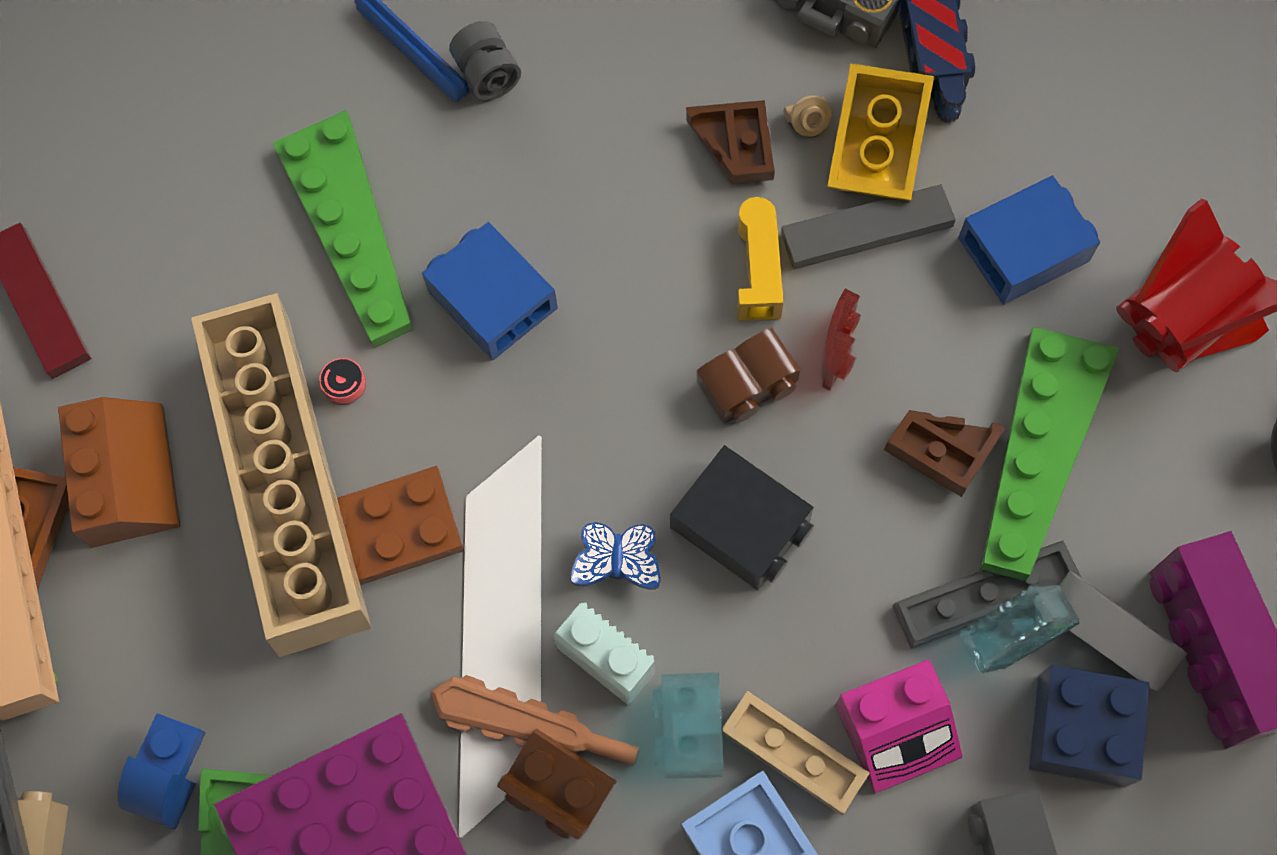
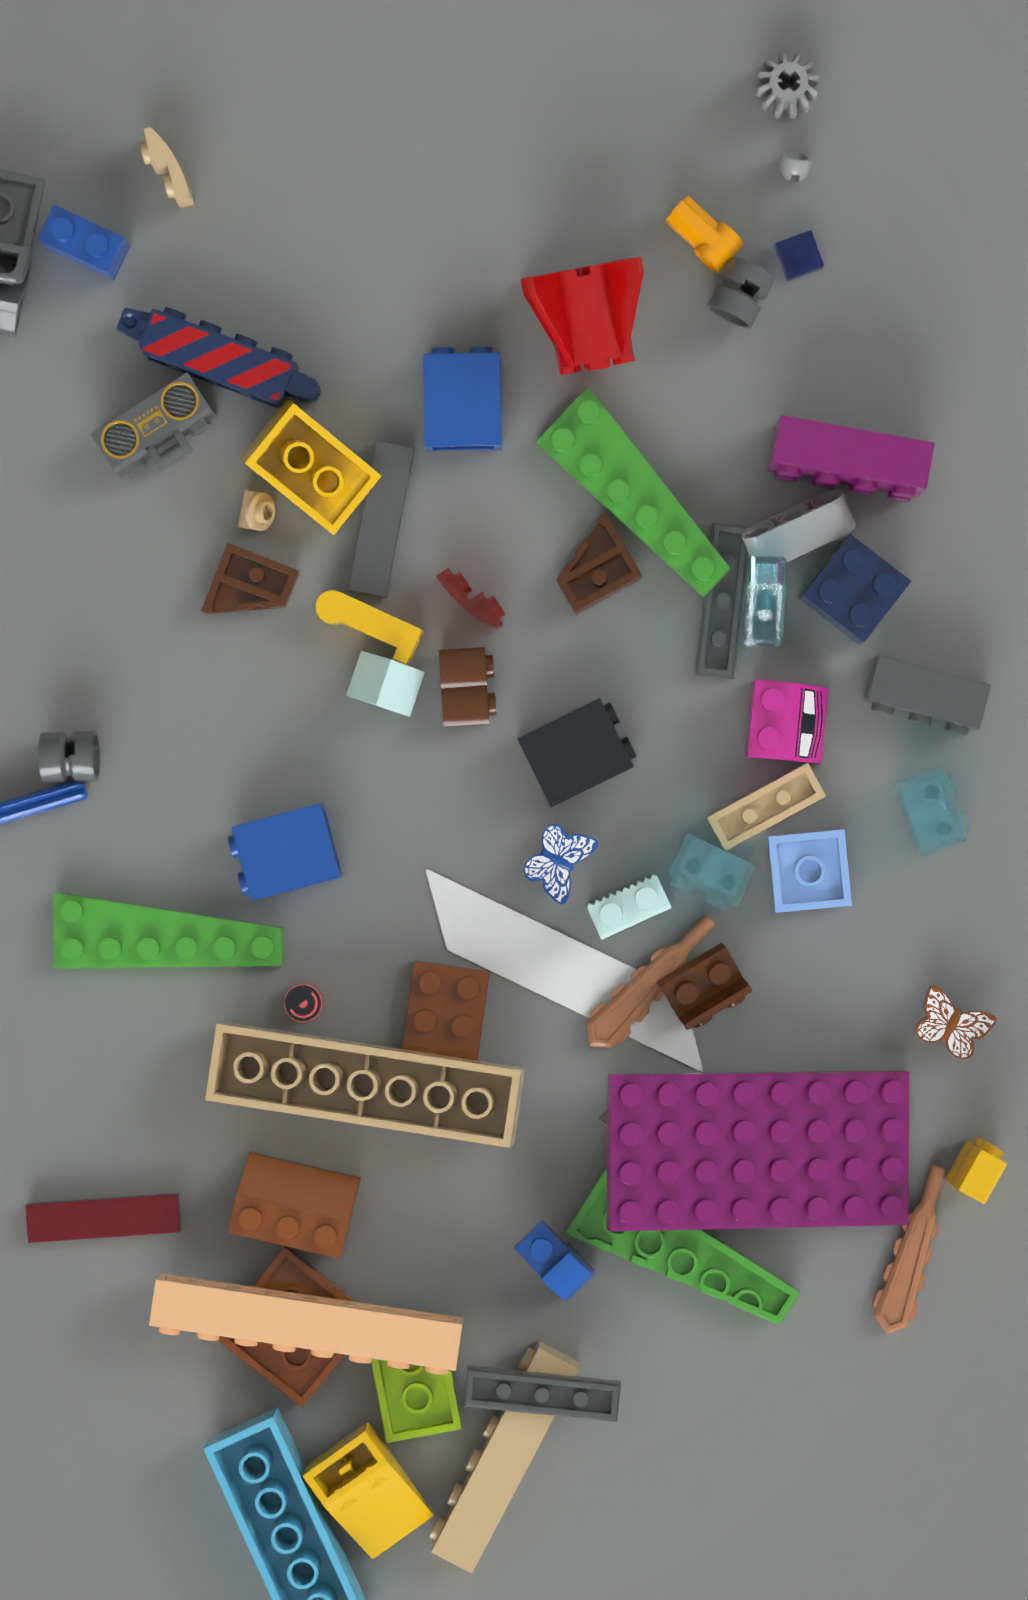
camera: 65 degrees left, 20 degrees up
(709, 302) = (385, 683): none -> light aqua piece

